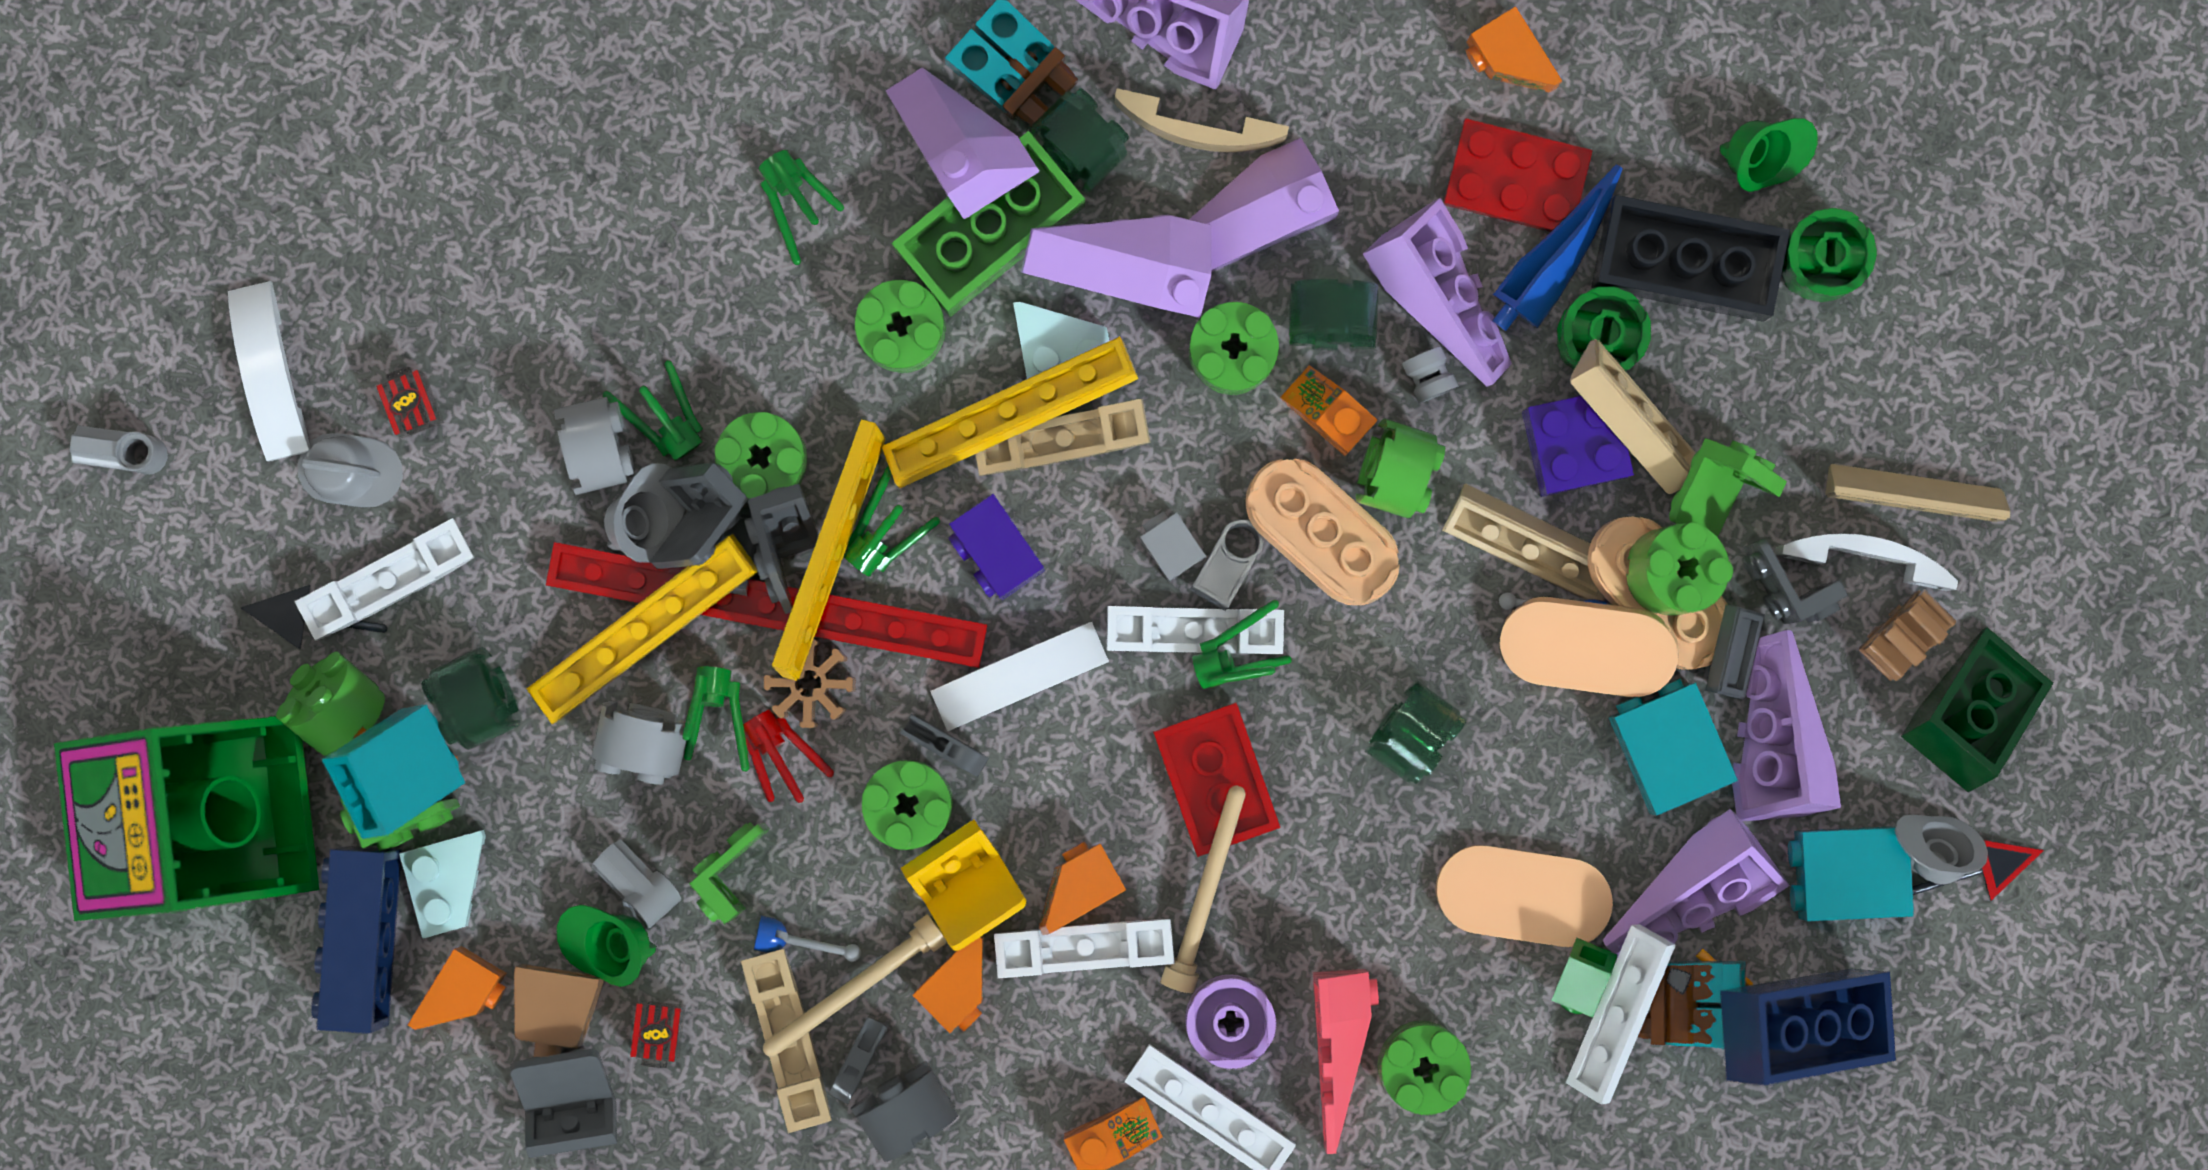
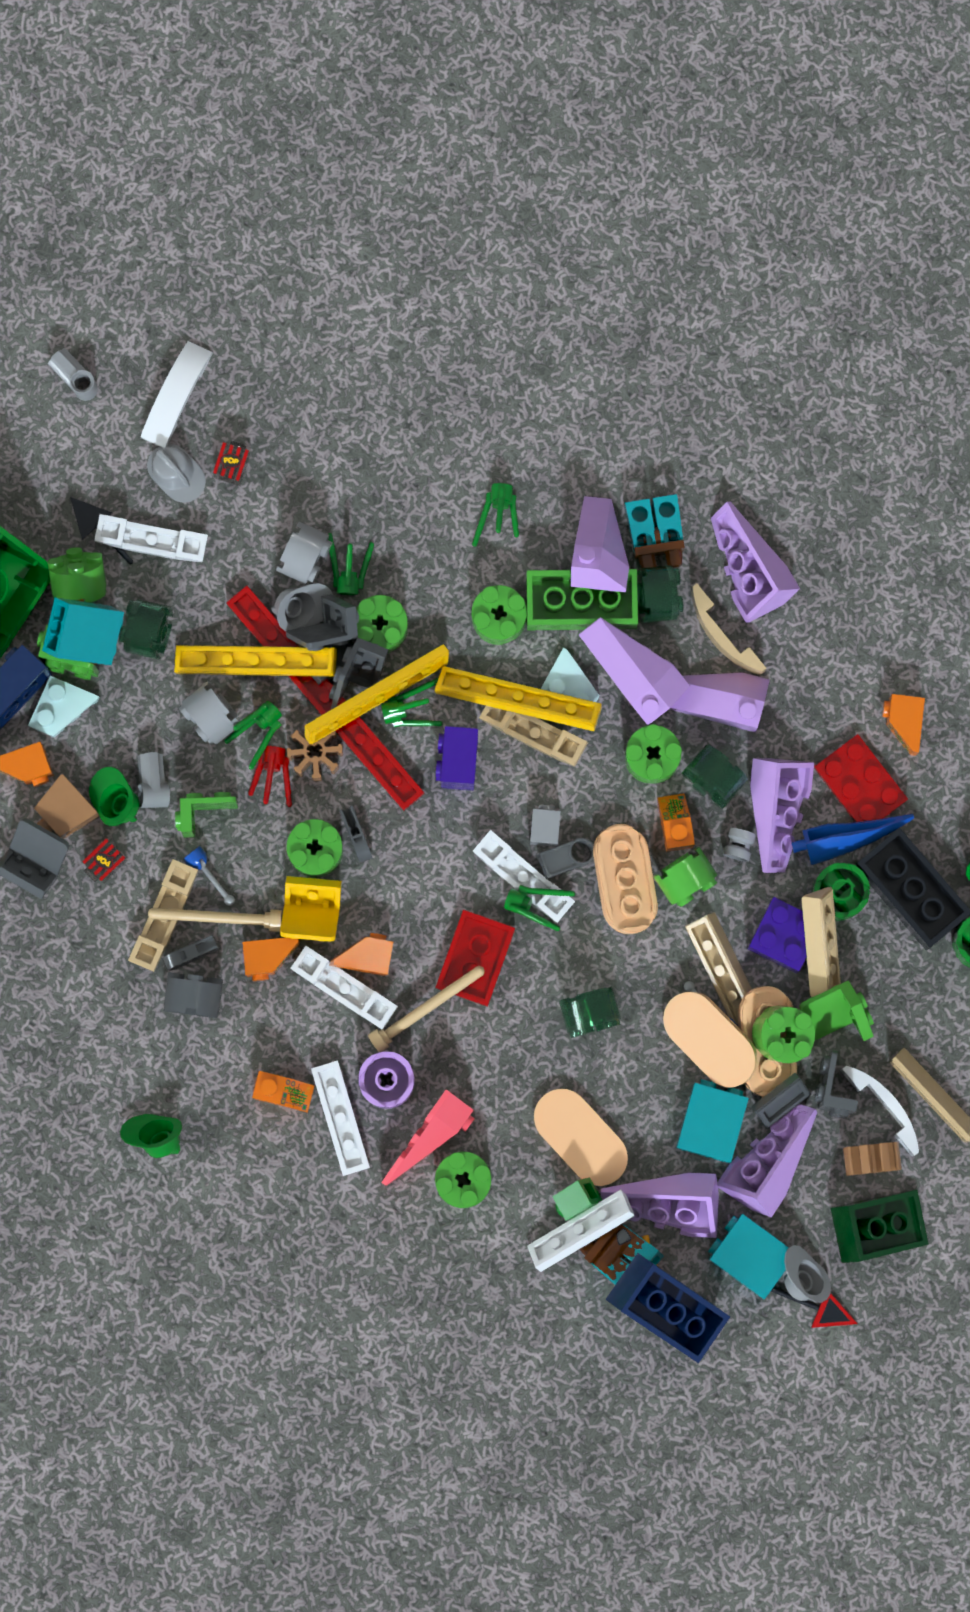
camera: 40 degrees right, 5 degrees down
(1019, 676) = (420, 830): white slope -> none

